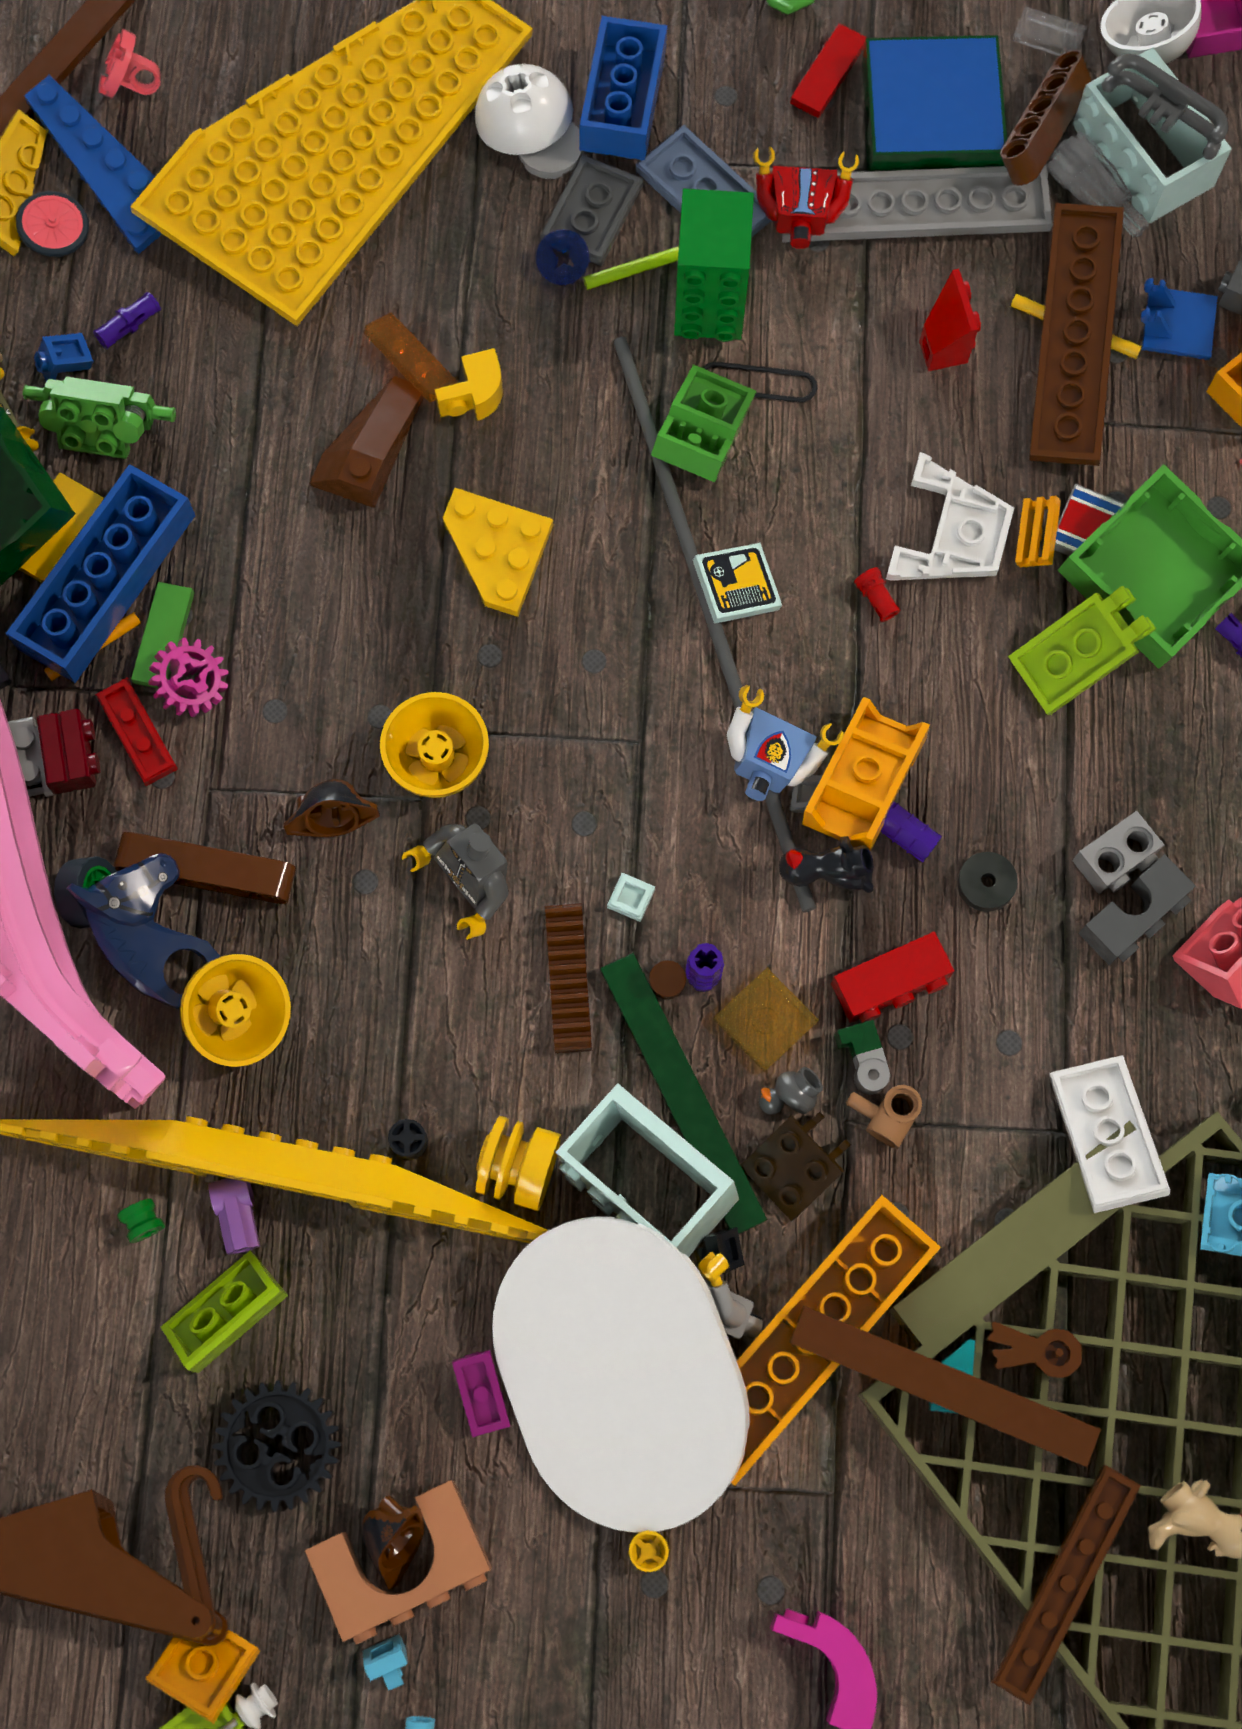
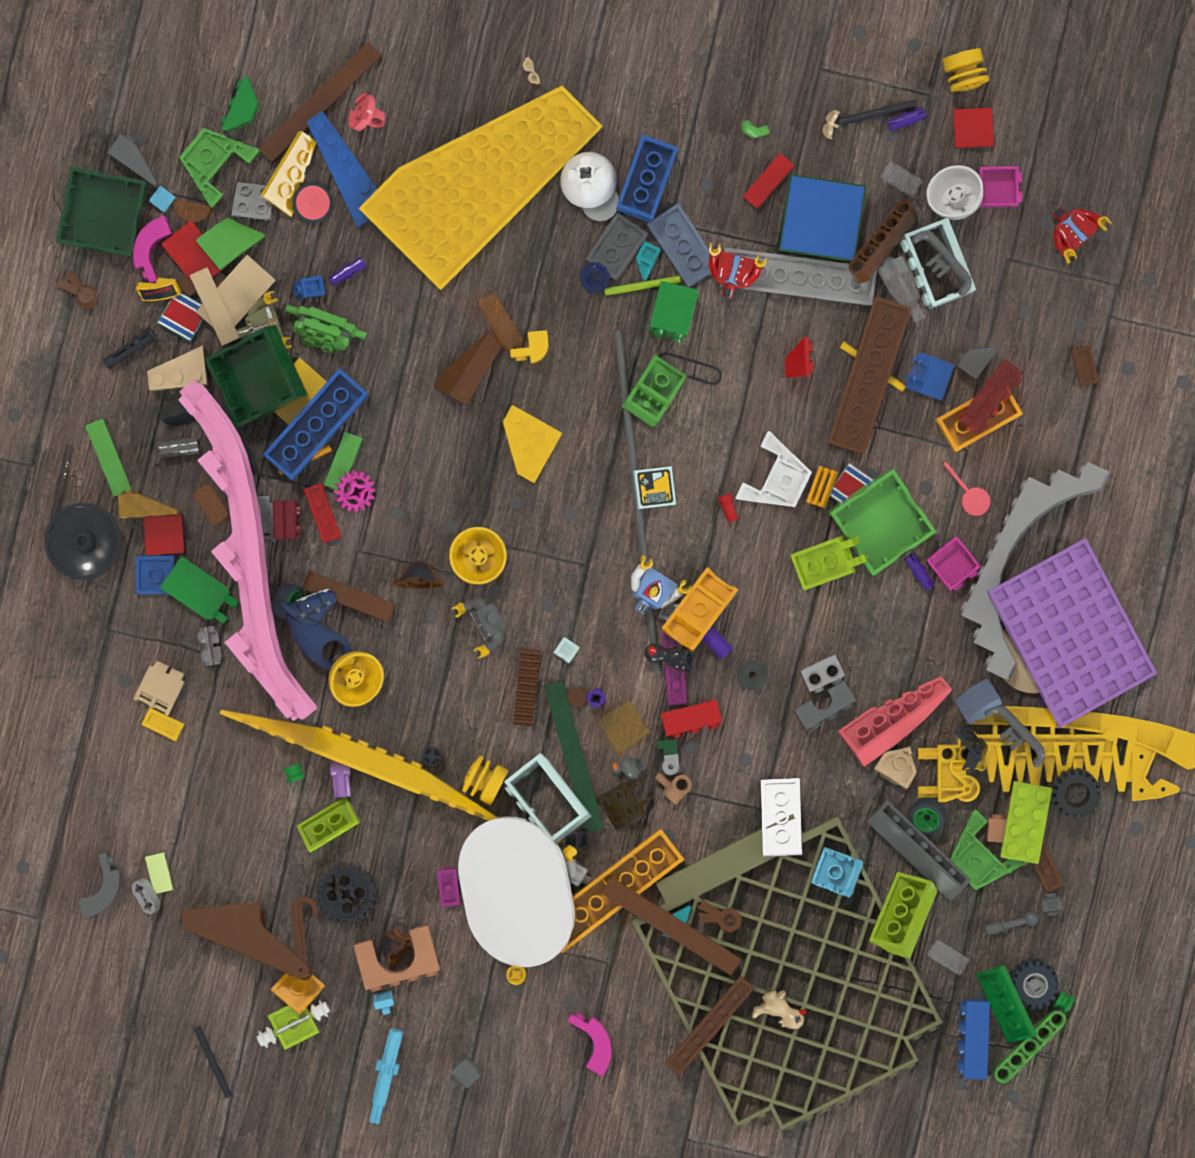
camera: 10 degrees right, 15 degrees up
(647, 220) = (646, 258): none -> teal tile
(842, 909) = (674, 678): none -> magenta tile

